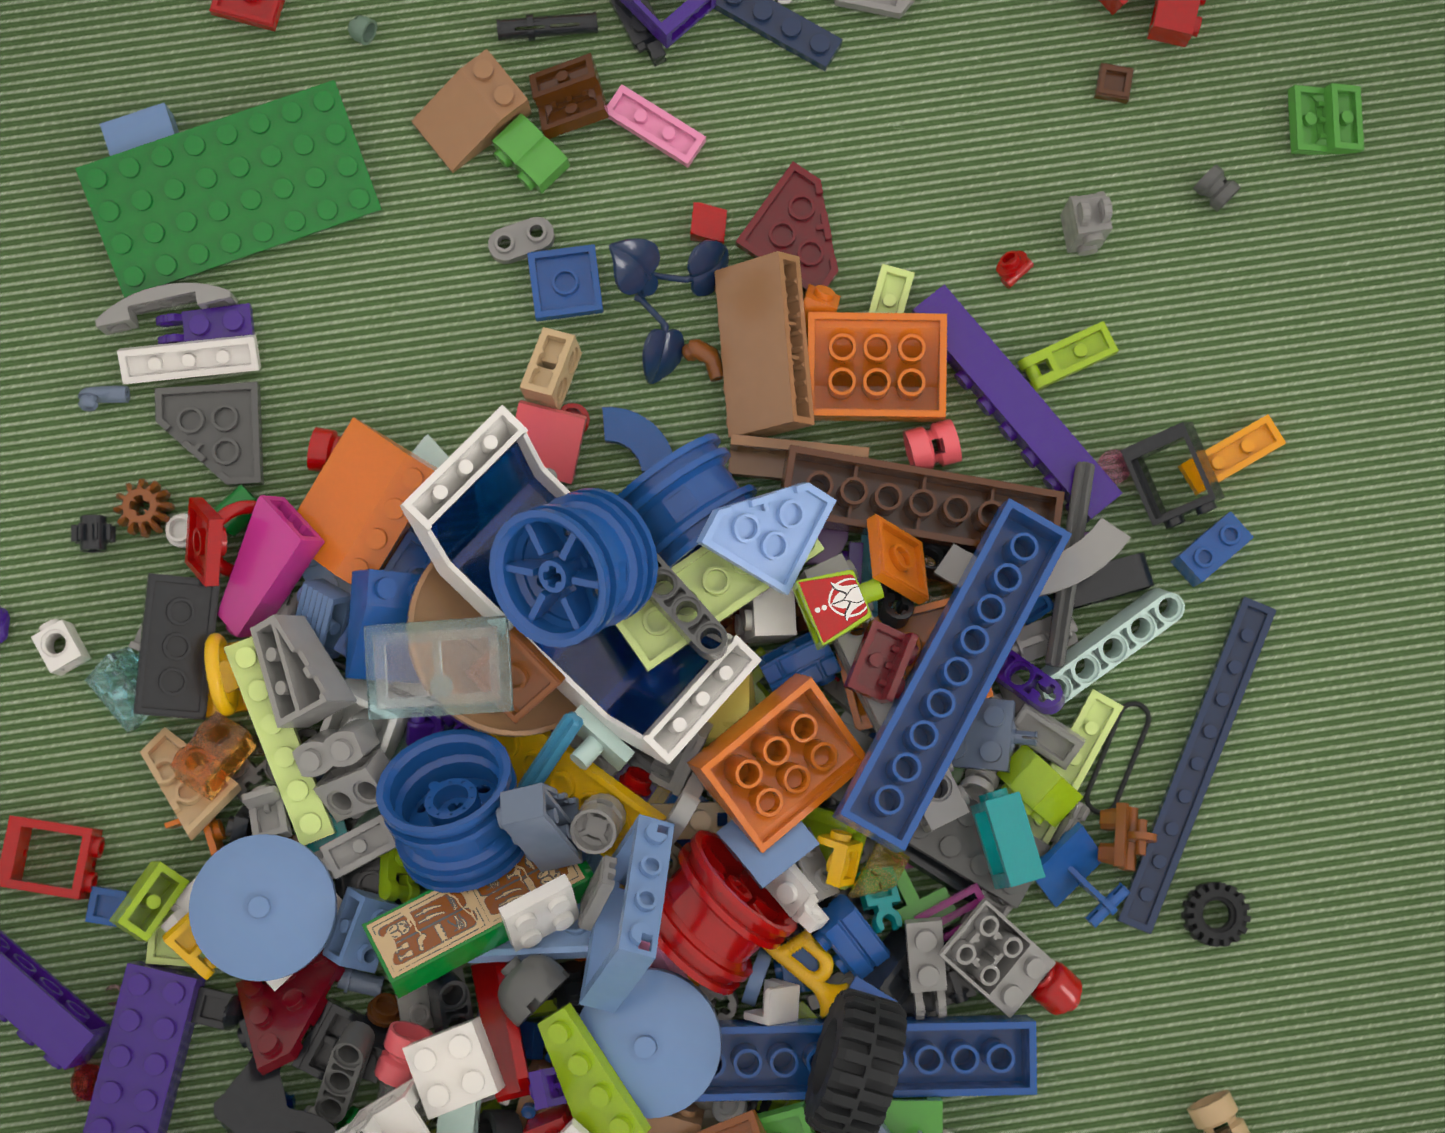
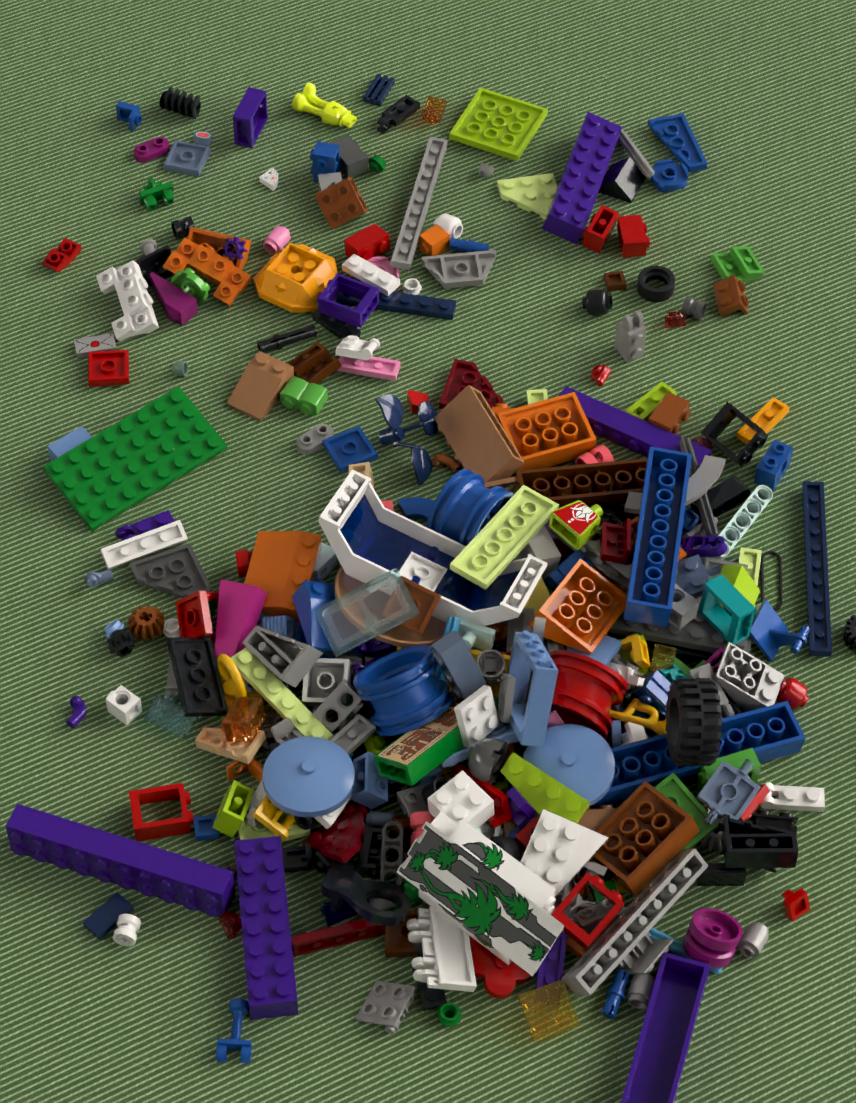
camera: 20 degrees left, 30 degrees down
(94, 501) = (113, 626): none -> light blue plate
(124, 313) = (112, 521): light grey slope -> none
(336, 748) = (314, 689): light grey brick -> none
(551, 578) = (448, 551): blue wheel -> none
(639, 82) = (355, 348): none -> white plate
(696, 629) = (478, 538): dark grey beam -> none
(769, 533) = (525, 497): light blue plate -> none
(897, 559) = (602, 500): orange plate -> none
(1066, 122) = (597, 302): none -> black head
(1086, 396) = (671, 413): none -> dark orange brick
(1130, 837) = (796, 607): dark orange hips -> none
(1177, 197) = (674, 319): none -> clear red plate
(1188, 93) = (656, 294): none -> black tyre
(1287, 182) = (731, 296): none -> dark orange bracket

